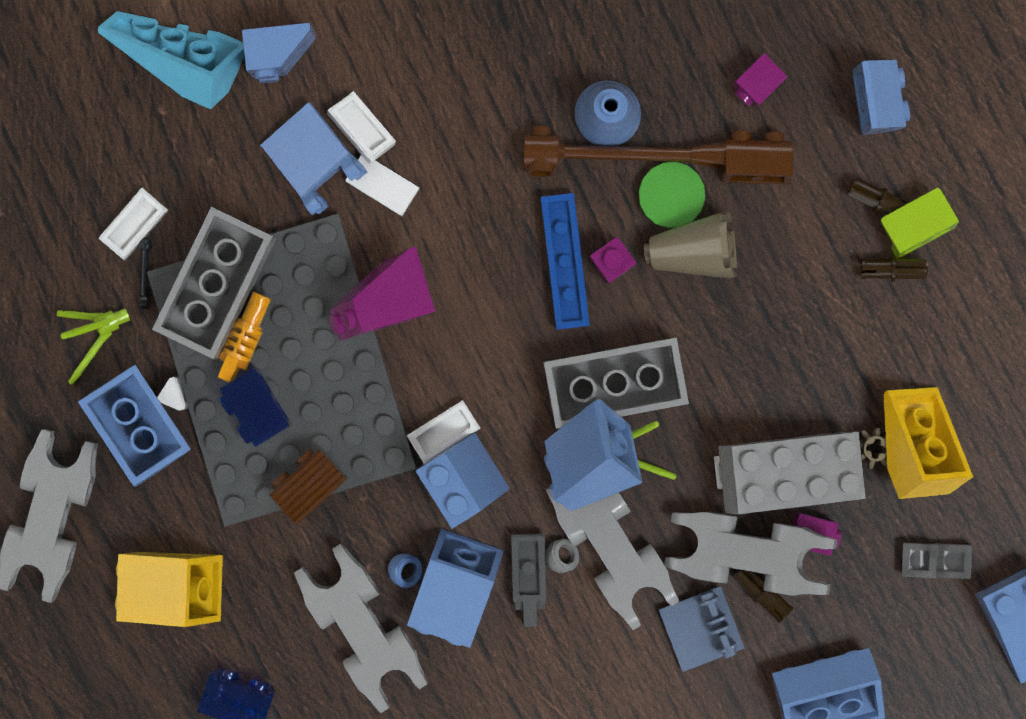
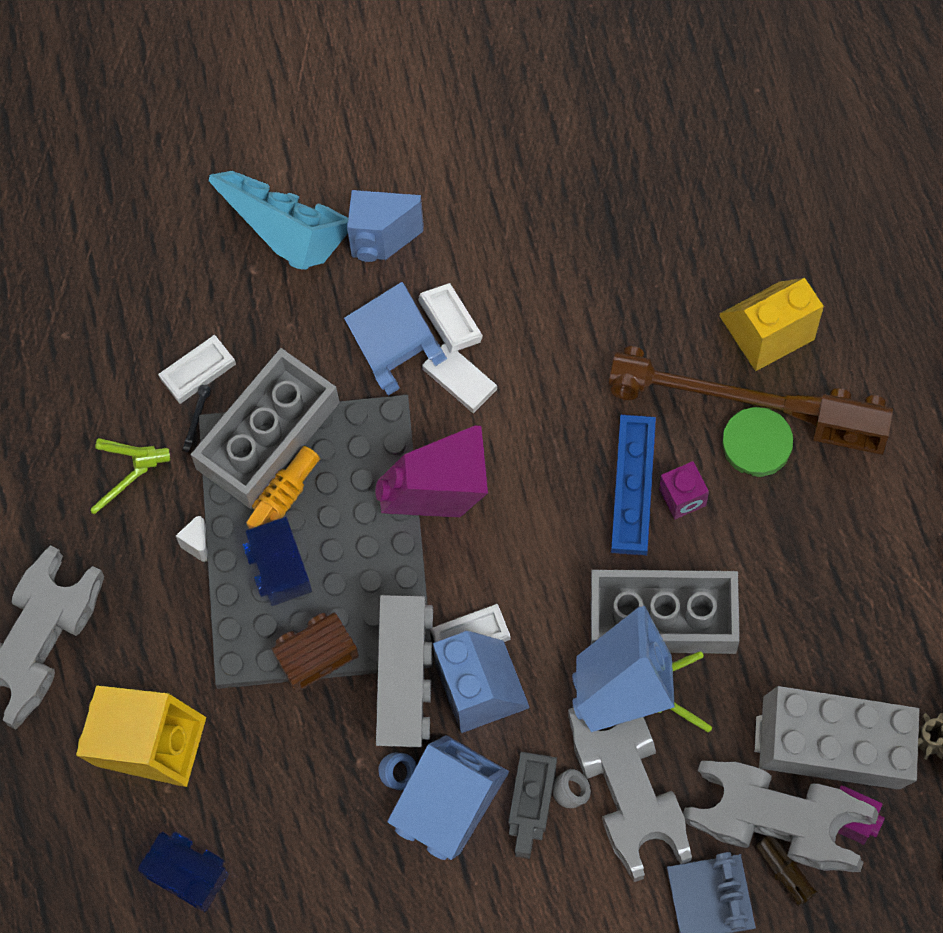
camera: 15 degrees right, 20 degrees down
(134, 426) = (148, 558): medium blue slope -> none
(349, 608) = (347, 848): light grey piece -> none
(391, 494) = (401, 671): none -> light grey brick
(606, 127) = (706, 346): medium blue cone -> none
(664, 73) = (774, 321): none -> yellow slope
(695, 248) = (774, 492): dark tan cone -> none
(759, 81) = (867, 346): magenta brick -> none

